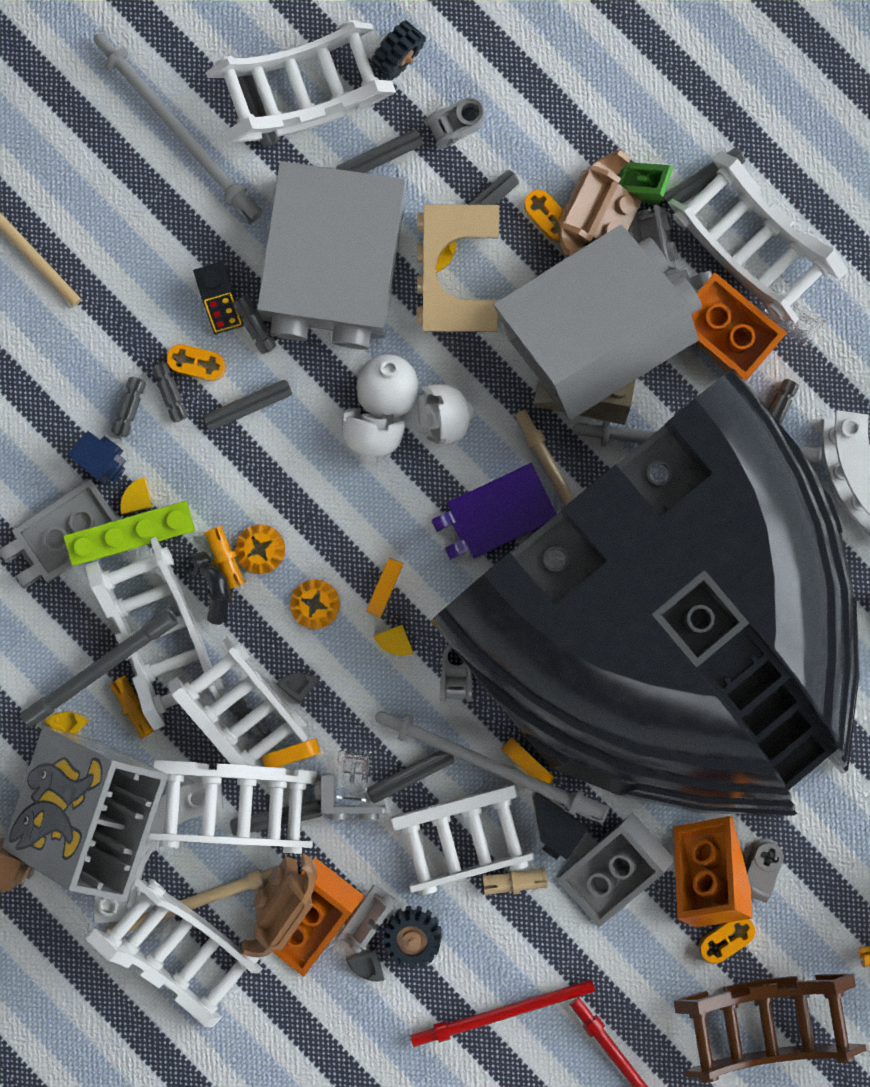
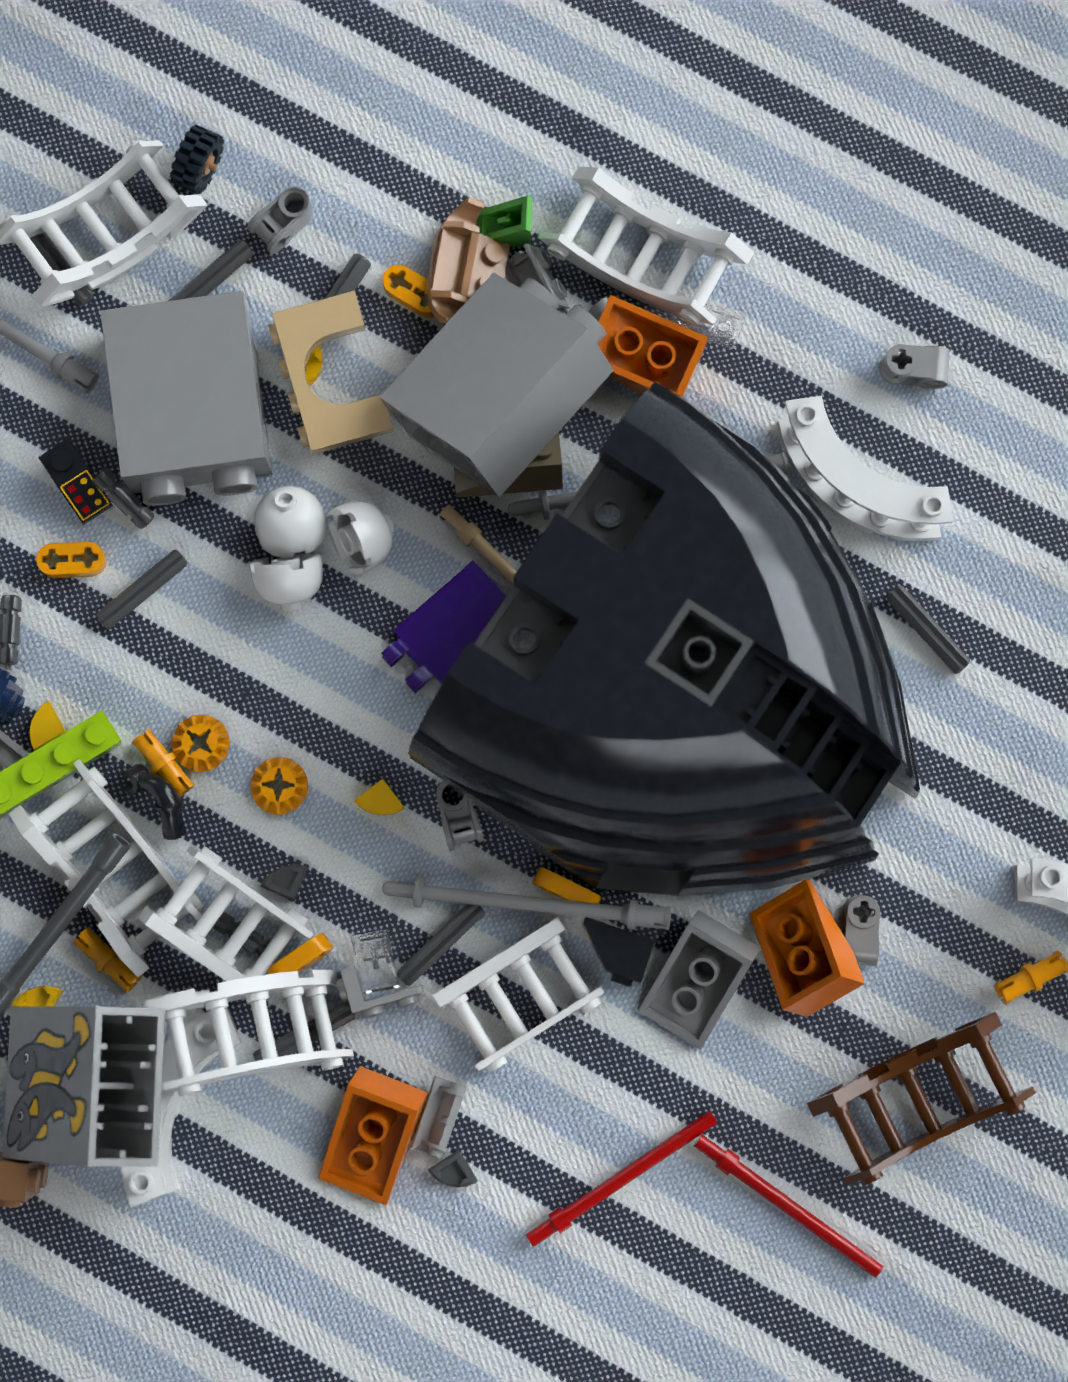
camera: 20 degrees left, 5 degrees down
(127, 951) = (209, 1242): white fence -> none
(169, 392) = (50, 600): dark grey axle -> none
(254, 880) = (299, 1112): tan bar -> none
(281, 906) = (337, 1129): medium nougat plate -> none
(384, 587) = (351, 744): light orange beam -> none
(412, 937) = (495, 1122): black wheel -> none
(515, 881) = (591, 1026): tan pin -> none
(698, 181) = (561, 211): dark grey axle -> none
(730, 946) = (852, 1025): light orange beam -> none
(783, 399) = (727, 413): dark grey axle -> none

